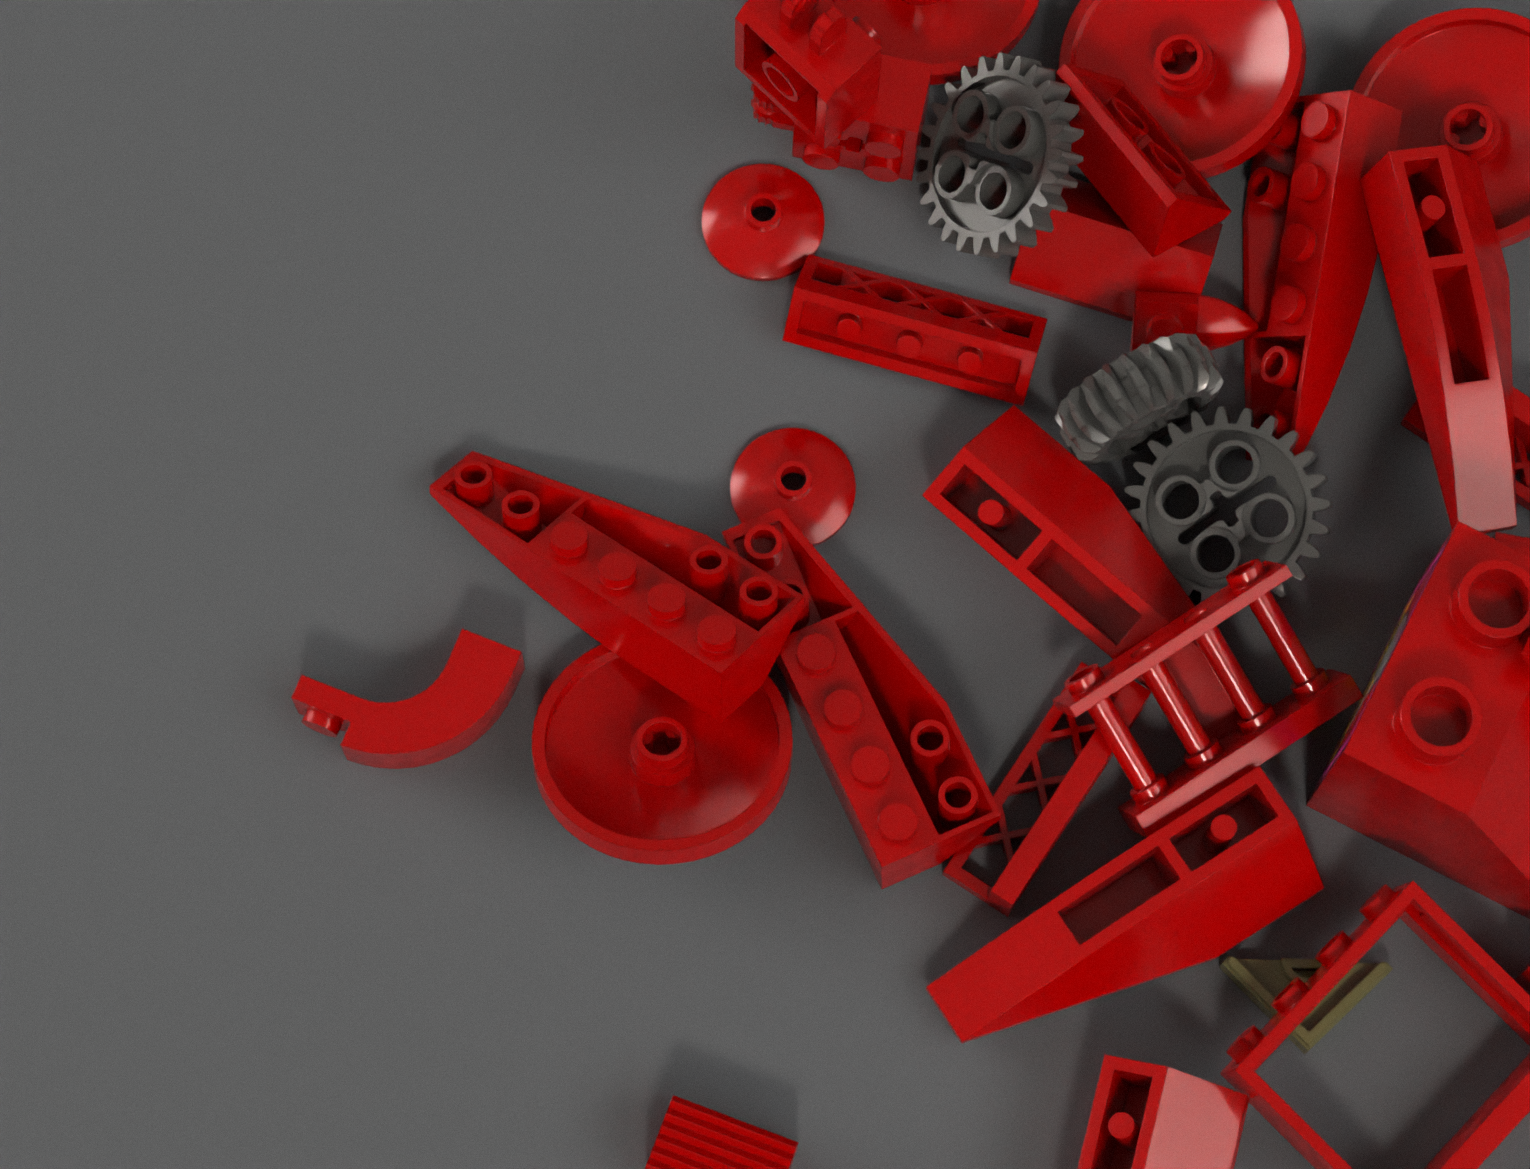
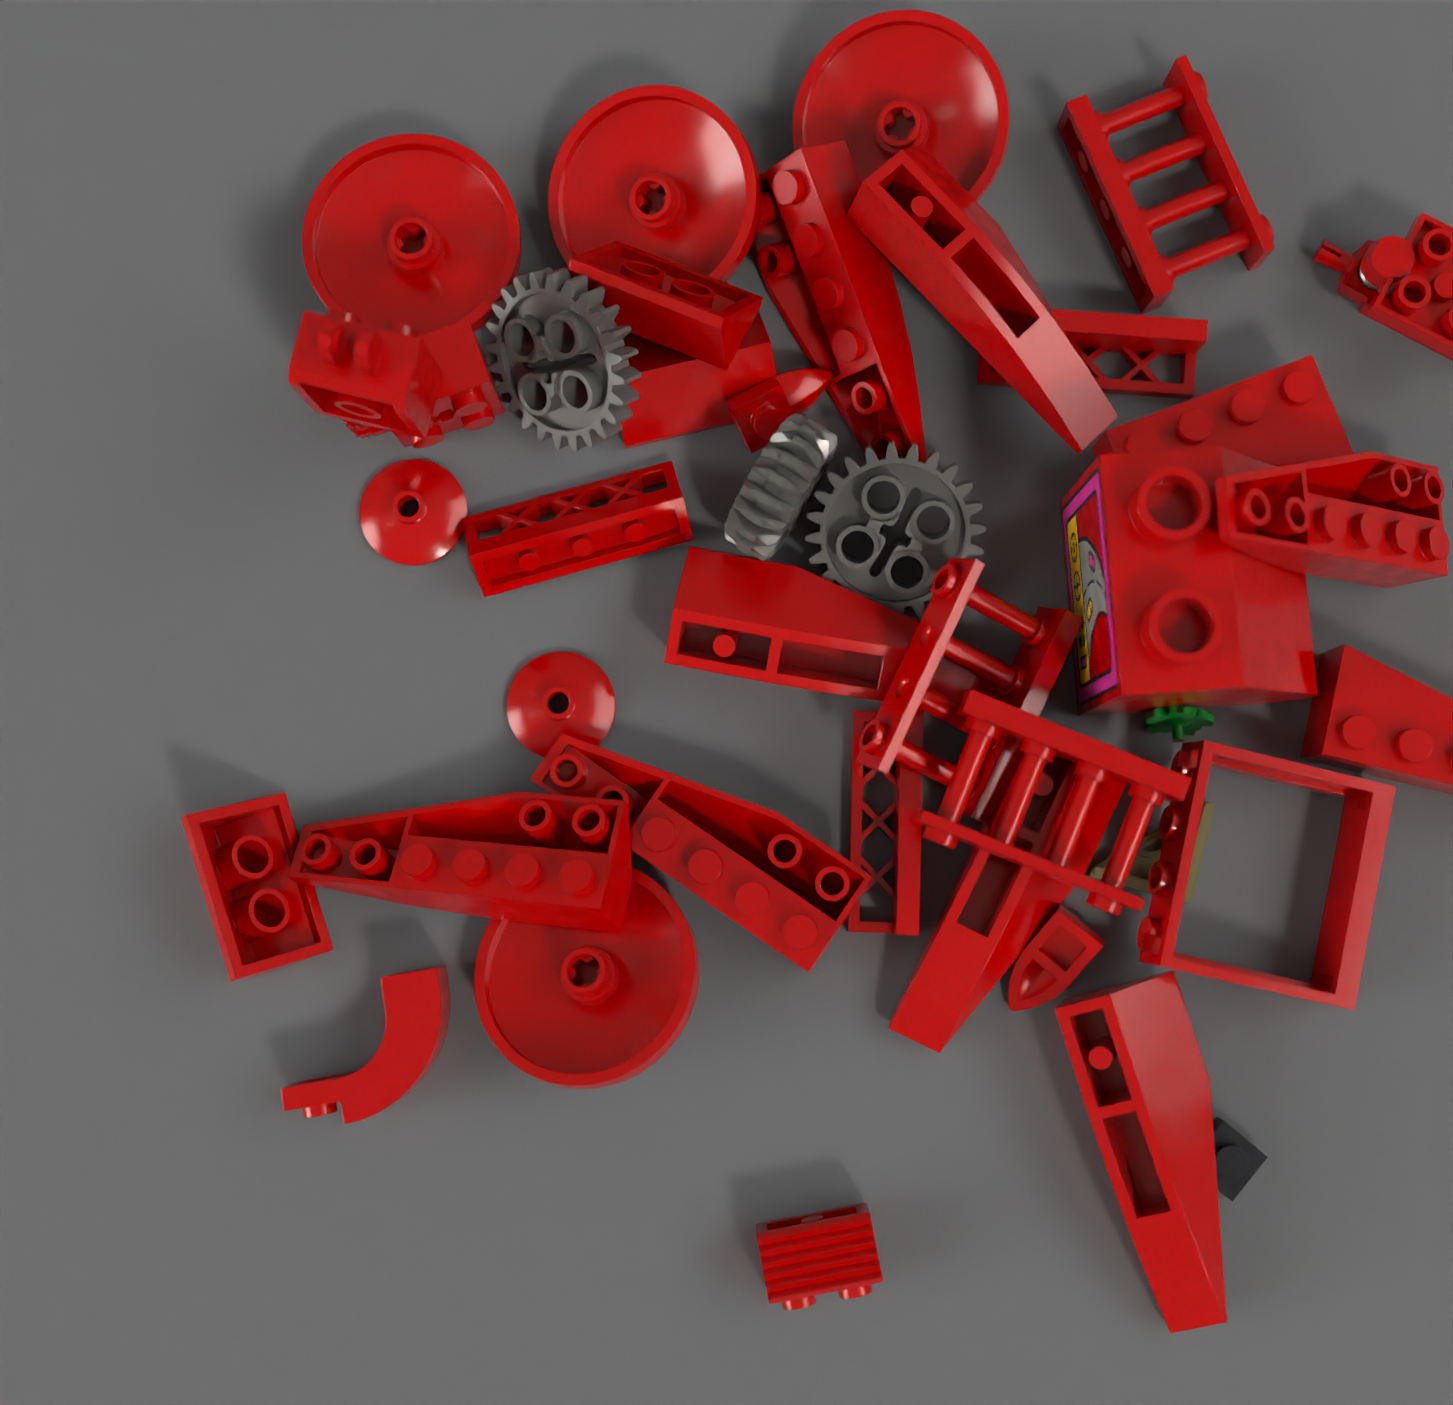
camera: 25 degrees left, 10 degrees up
(383, 507) = (243, 872): none -> red slope
(1132, 1019) = (1052, 960): none -> red plate
(1245, 778) = (1094, 766): none -> red fence
(1402, 860) = (1179, 720): none -> green plant

